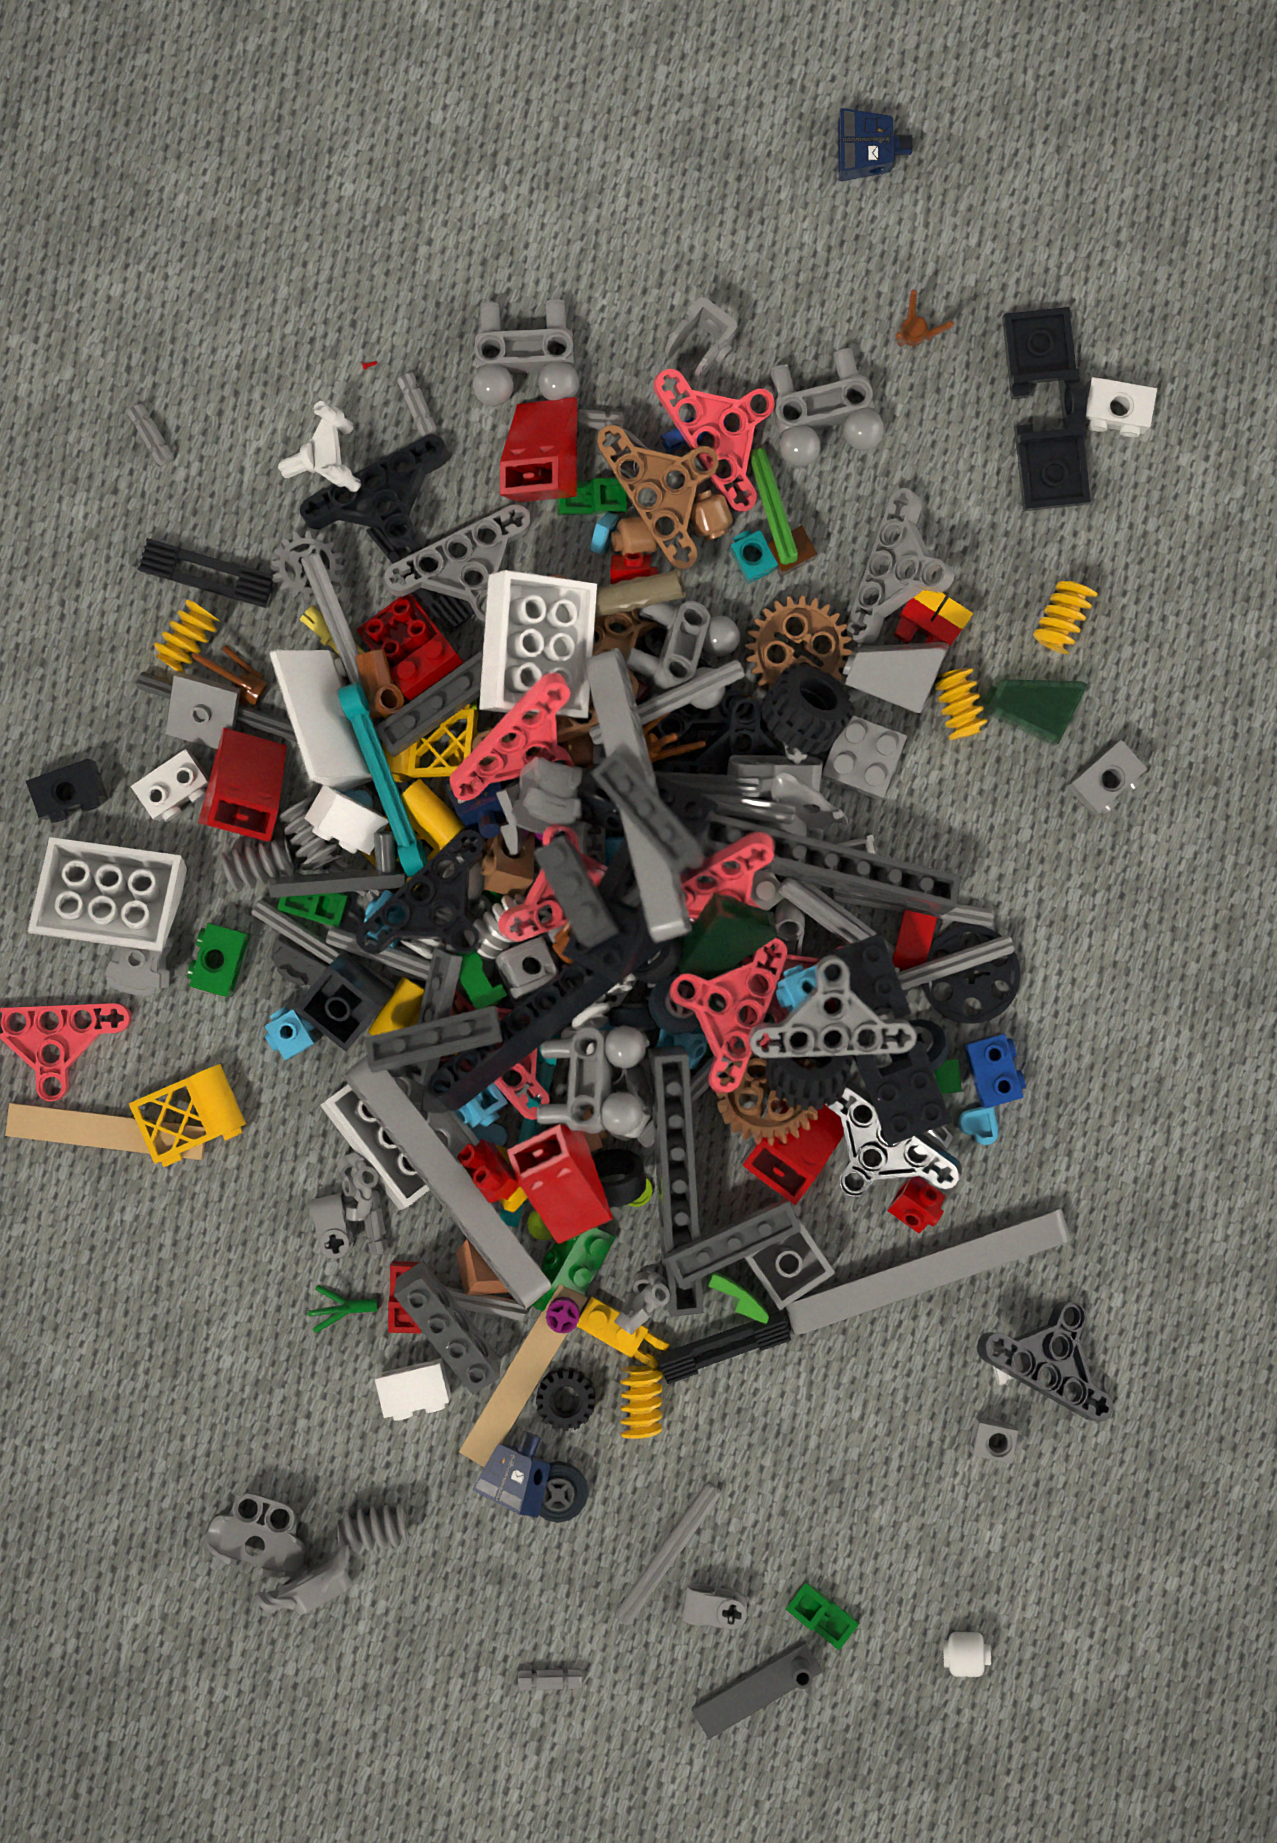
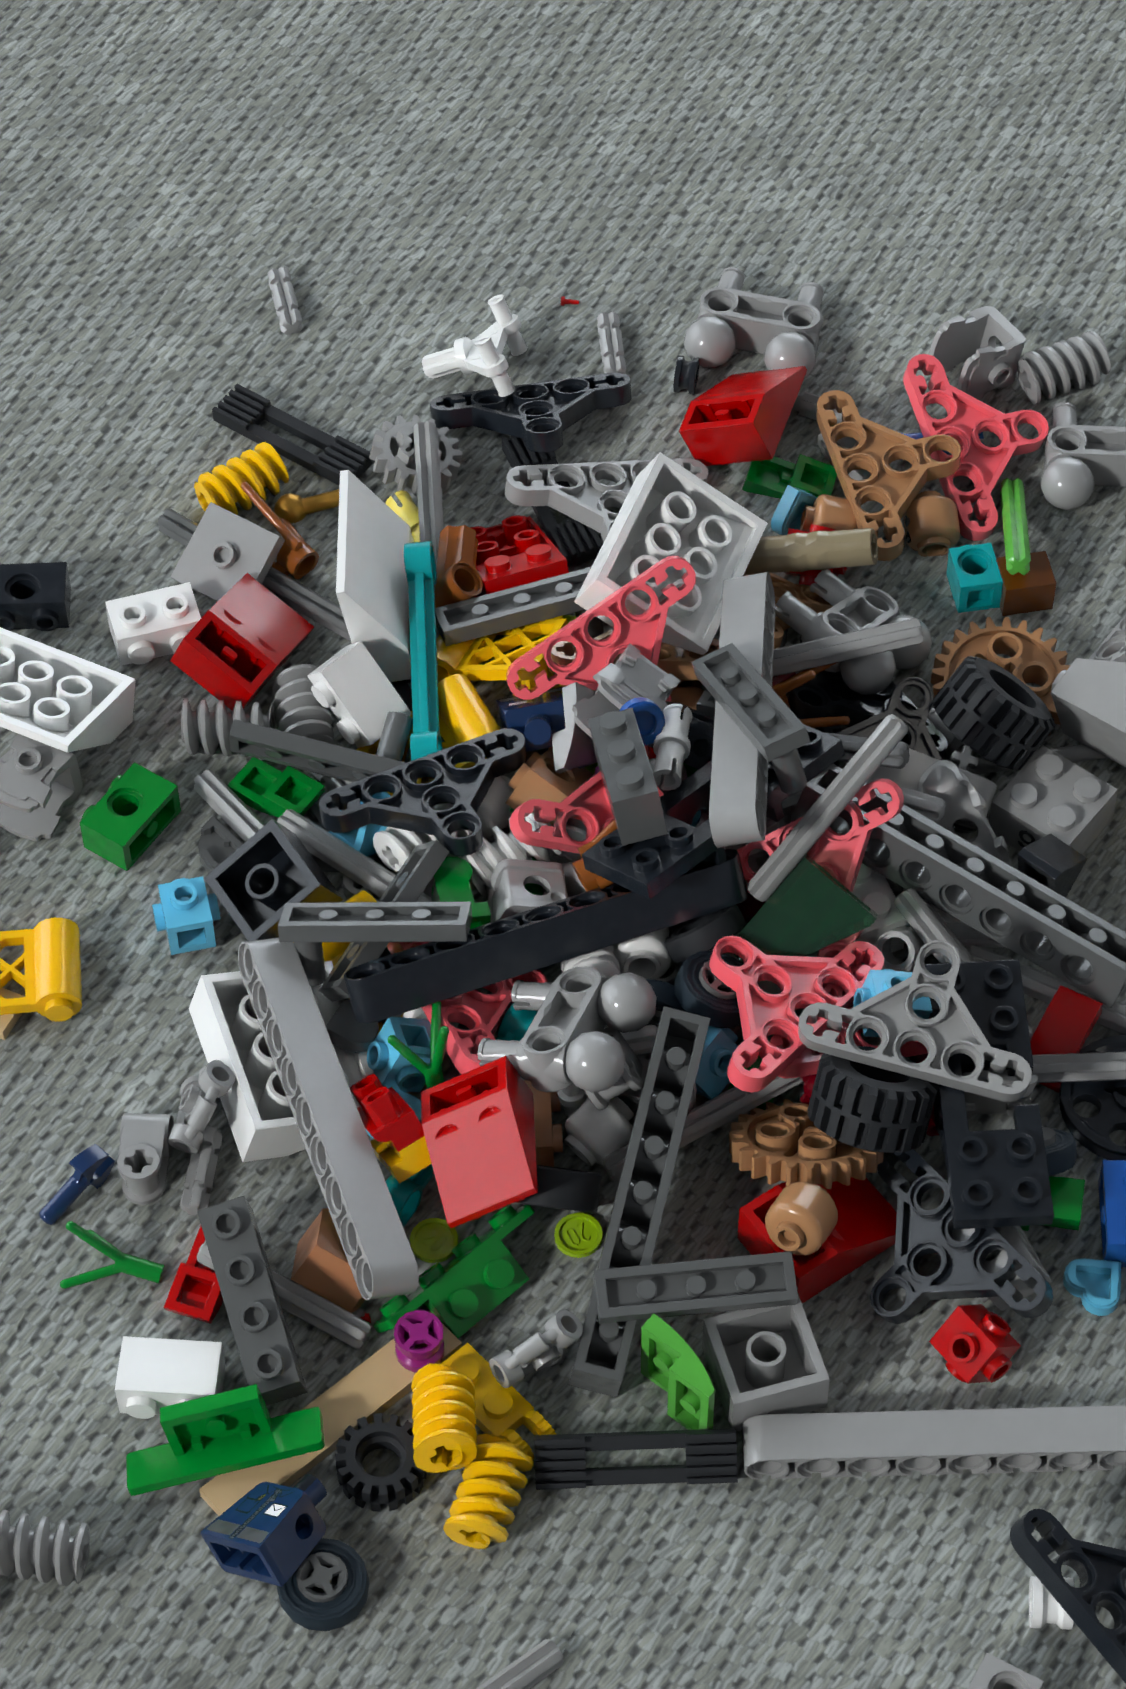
camera: 20 degrees right, 35 degrees down
(231, 638) = (295, 508): none -> pearl gold bar
(297, 1260) = (91, 1168): none -> dark blue bar
(464, 1425) = (221, 1437): none -> green bracket
(484, 420) = (686, 374): none -> black bush
(505, 1119) = (432, 1071): none -> green plant
(569, 825) = (648, 717): none -> blue tile
(595, 839) = (672, 746): none -> white pin
(599, 1372) = (443, 1419): none -> yellow piece
(727, 863) = (827, 807): none -> light grey axle
(767, 327) = (1063, 363): none -> light grey piece
(788, 1175) = (801, 1218): none -> medium nougat head
(876, 817) = (1051, 863): none -> black slope

